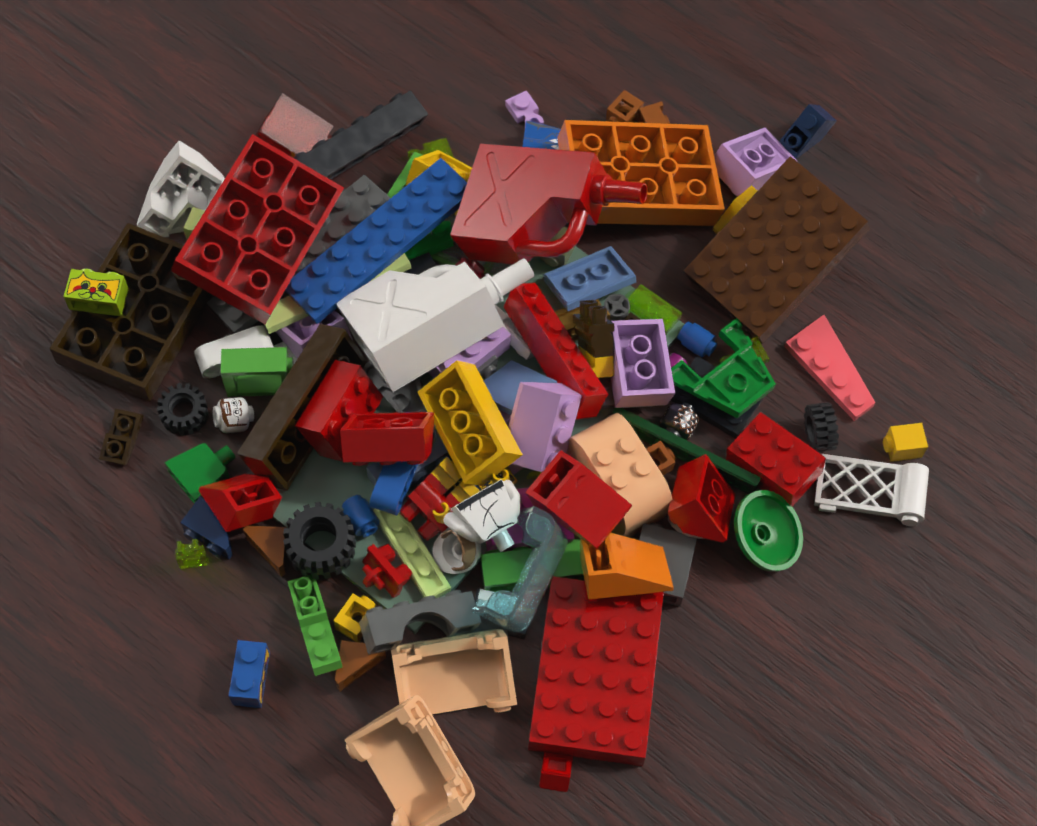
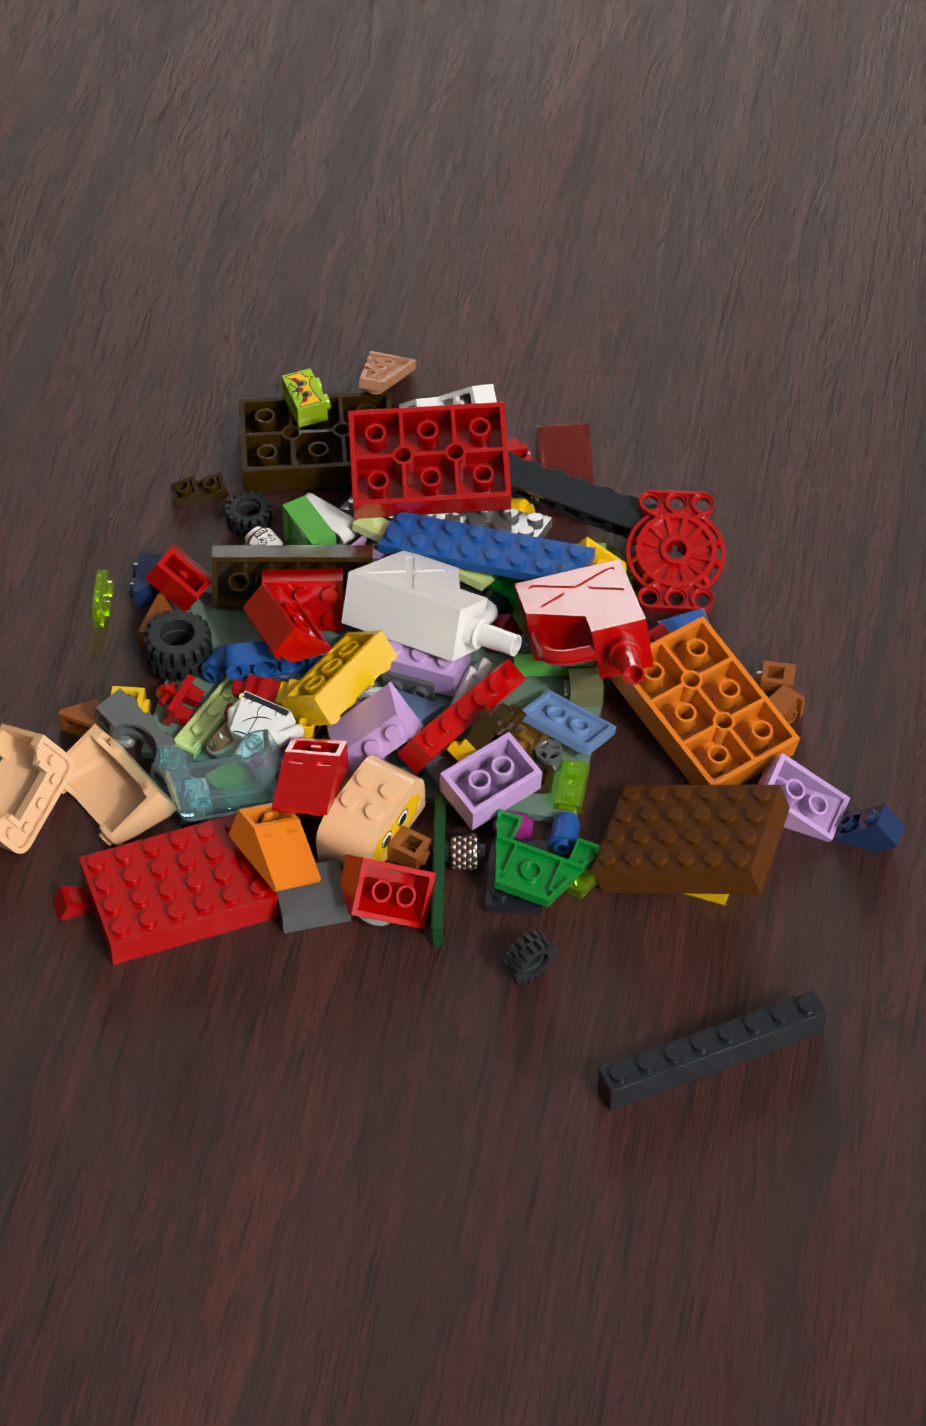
camera: 65 degrees right, 15 degrees down
(92, 216) = (384, 371): none -> nougat wing
(191, 555) = (118, 573): clear neon green plate -> none
(198, 577) = (101, 605): none -> clear neon green plate
(199, 468) = (197, 543): green torso -> none
(249, 674) = (36, 658): blue brick -> none
(315, 625) = (117, 671): bright green slope -> none
(441, 89) = (694, 540): none -> red piece
(523, 108) = (726, 610): lavender plate -> none
(768, 531) = (406, 942): green dish -> none
(777, 457) = (471, 937): red brick -> none
(829, 364) = (612, 951): coral wing -> none
(905, 442) = (565, 1037): yellow brick -> none
(907, 496) = (509, 1057): white piece -> none
(969, 347) = (711, 1050): none -> black brick

